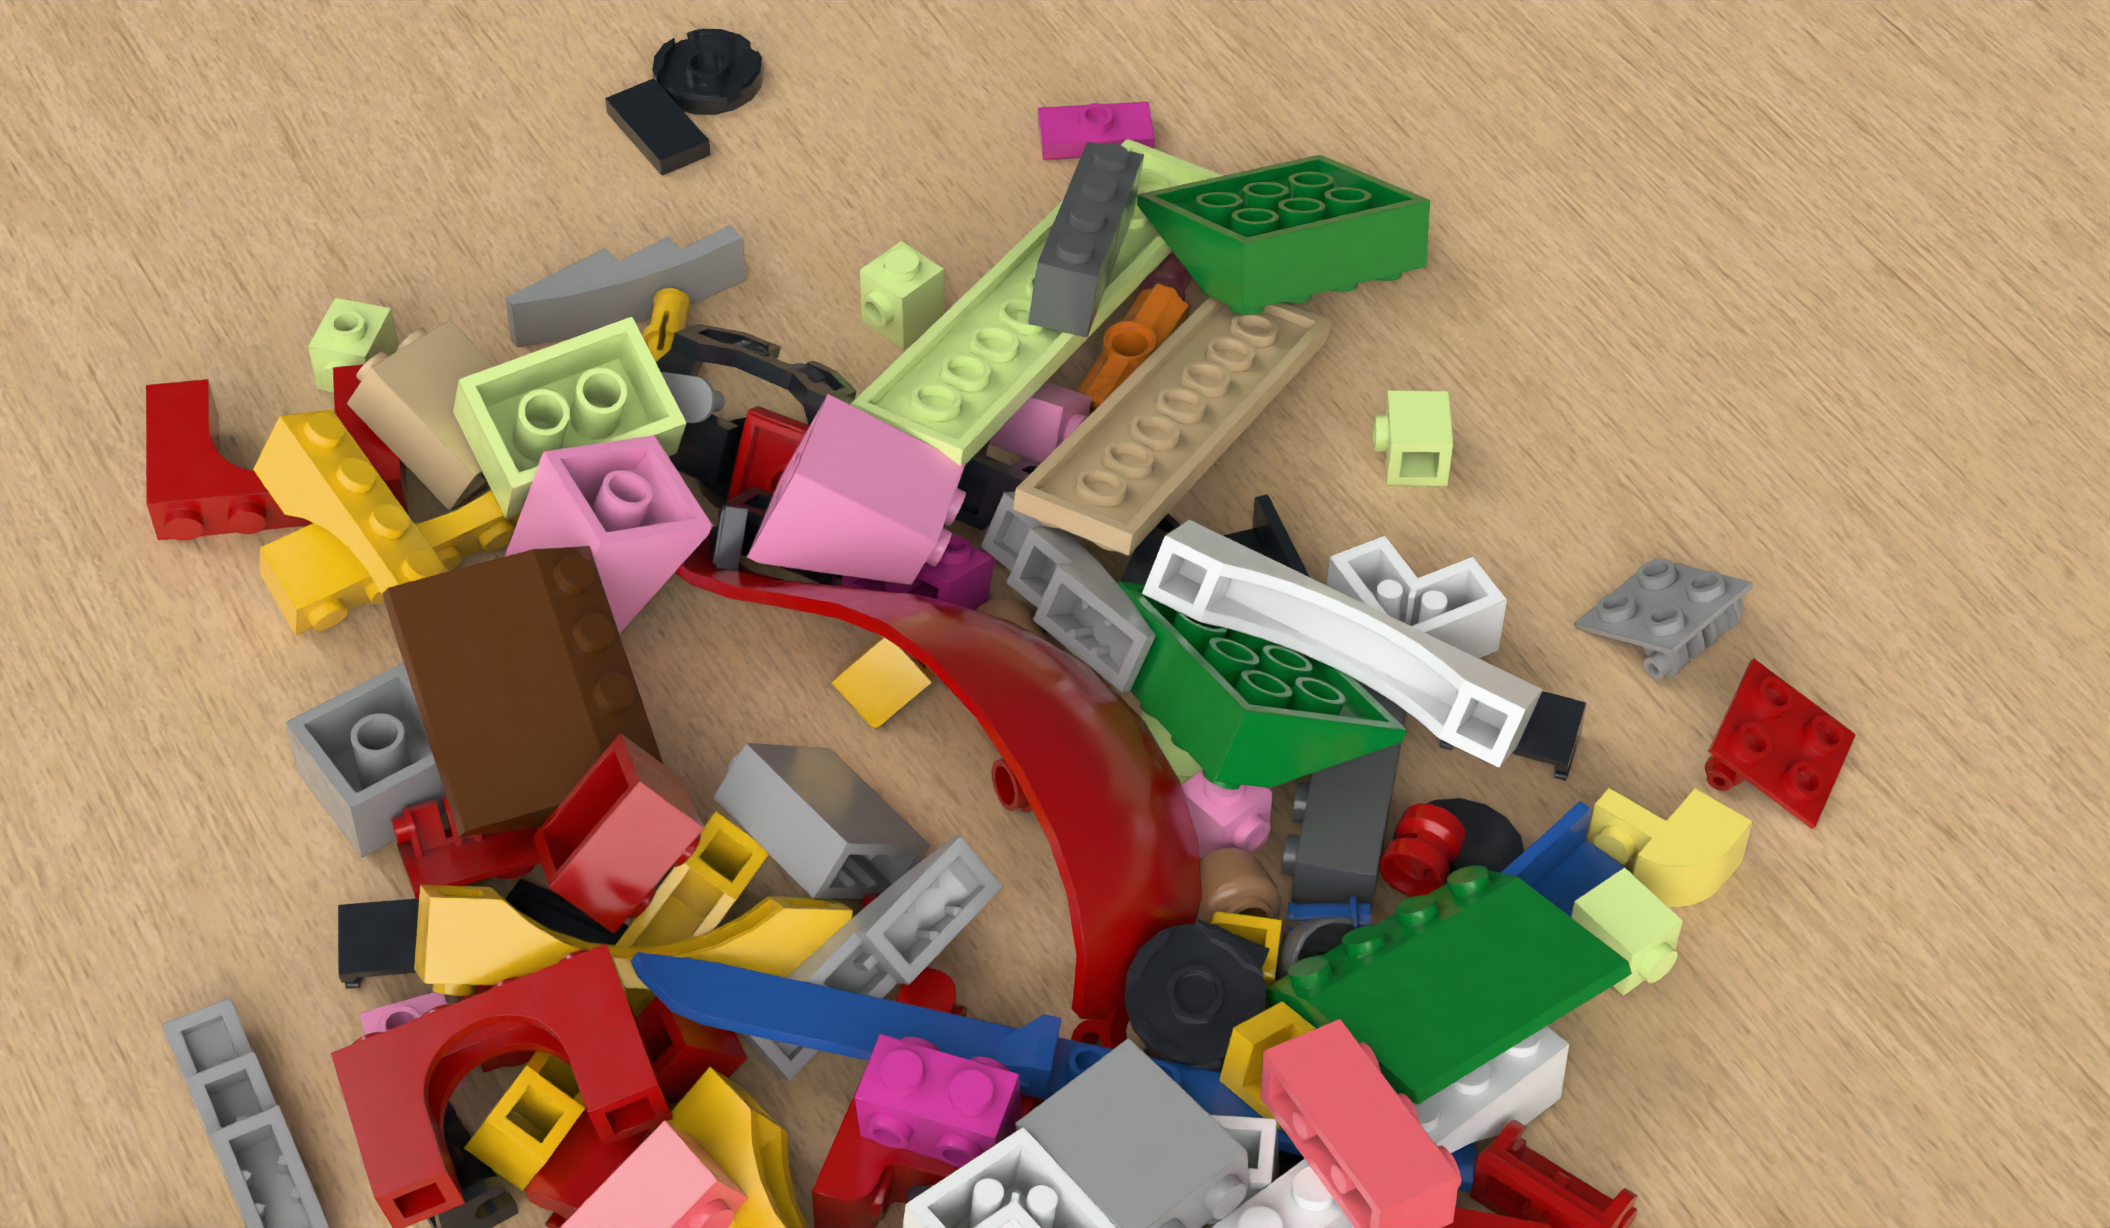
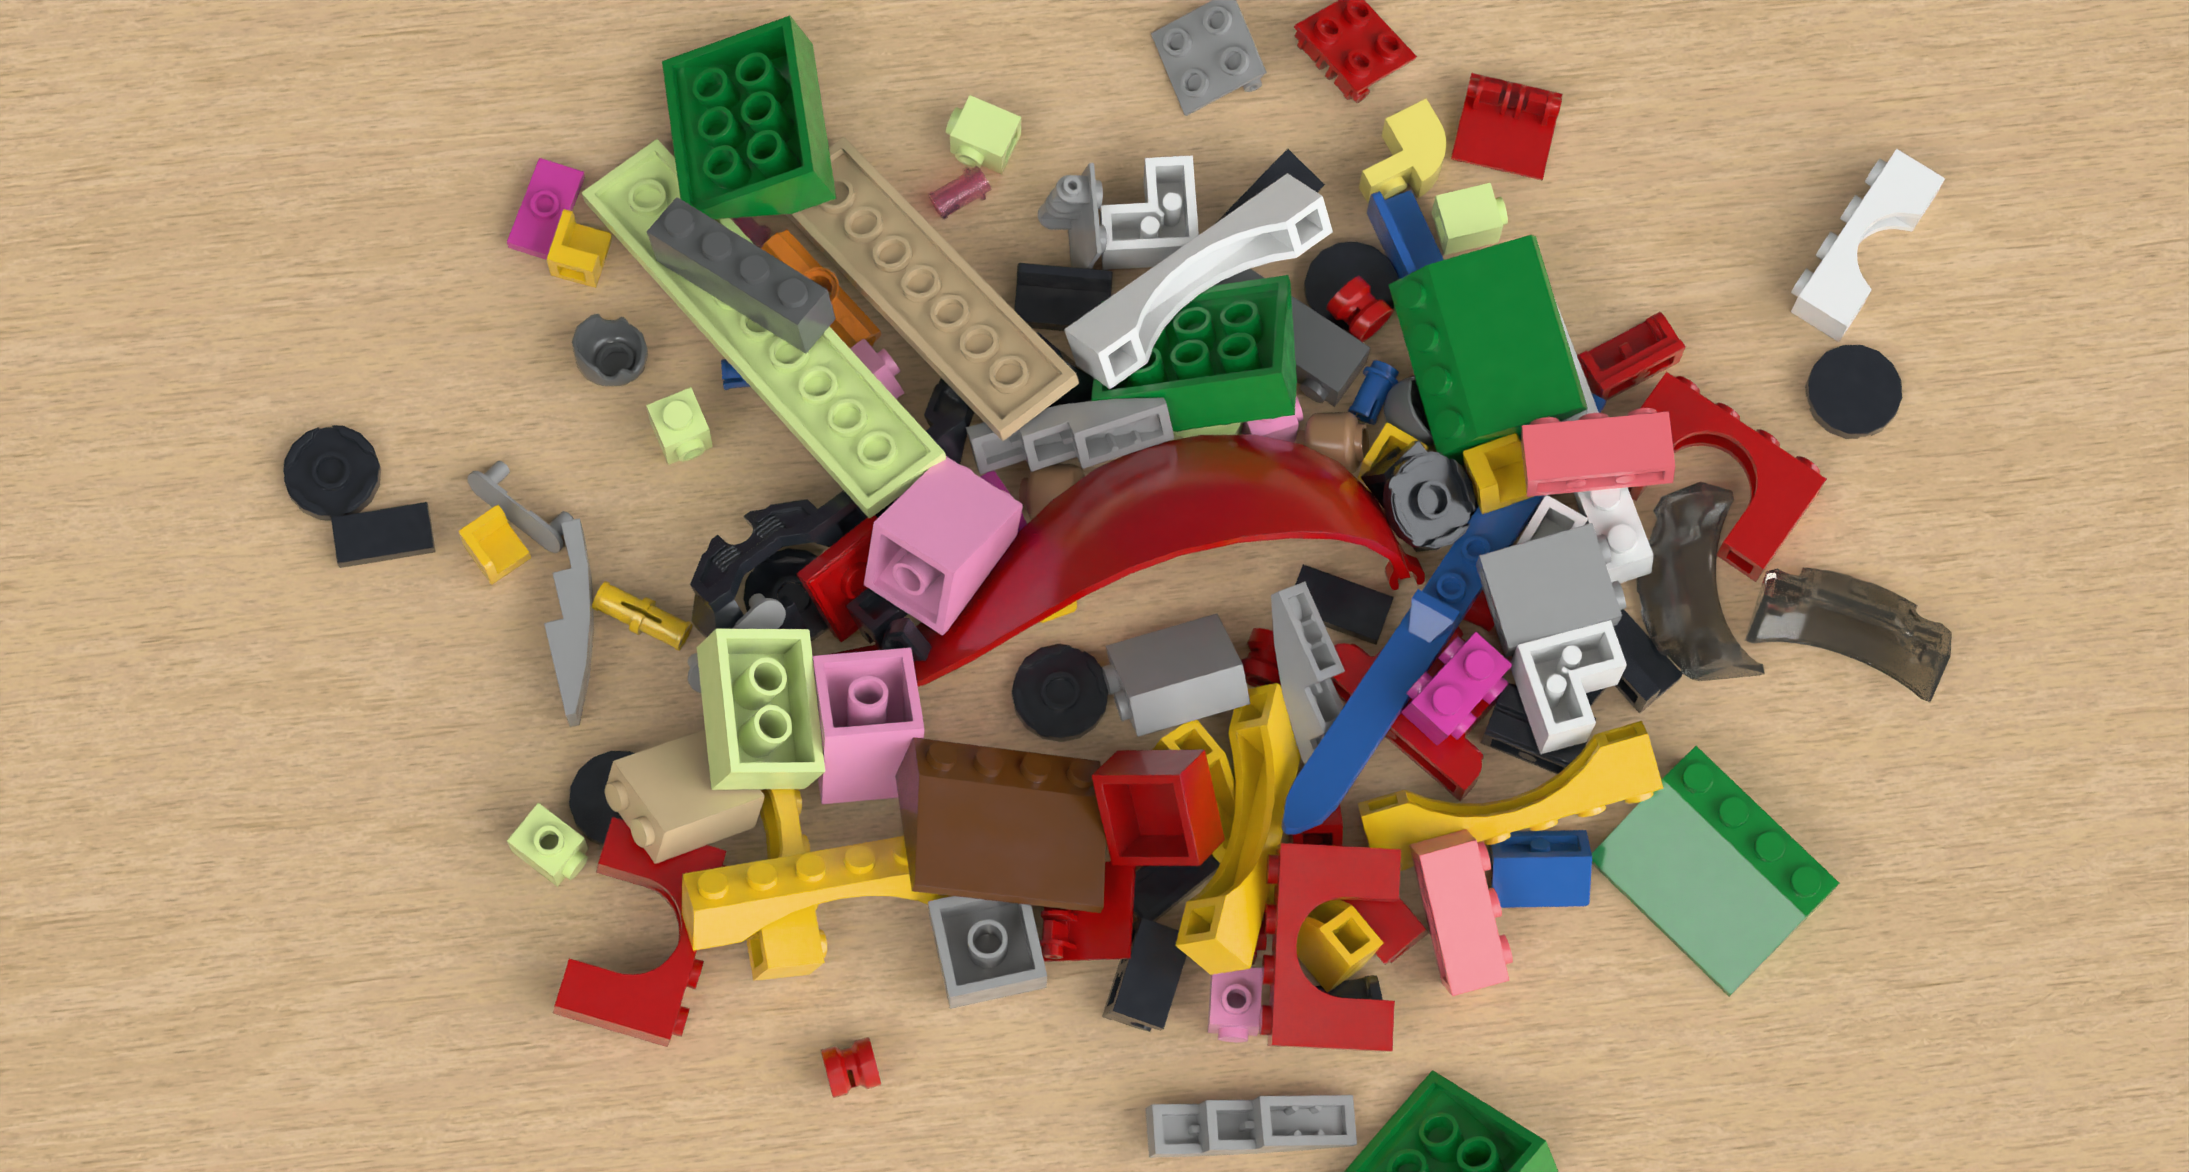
camera: 70 degrees left, 25 degrees up
(188, 699) = (851, 1067): none -> red wheel
(684, 196) = (494, 544): none -> yellow panel
(750, 719) = (1059, 693): none -> black tile
(759, 181) = (487, 489): none -> light grey piece
(957, 211) = (609, 351): none -> dark grey hair
(1019, 974) = (1346, 604): none -> black tile
(1054, 154) = (578, 251): none -> yellow panel
(1345, 448) = (960, 192): none -> clear pink pin
(1375, 512) = (1074, 208): none -> light grey hinge
(1788, 946) = (1506, 126): none -> red hinge

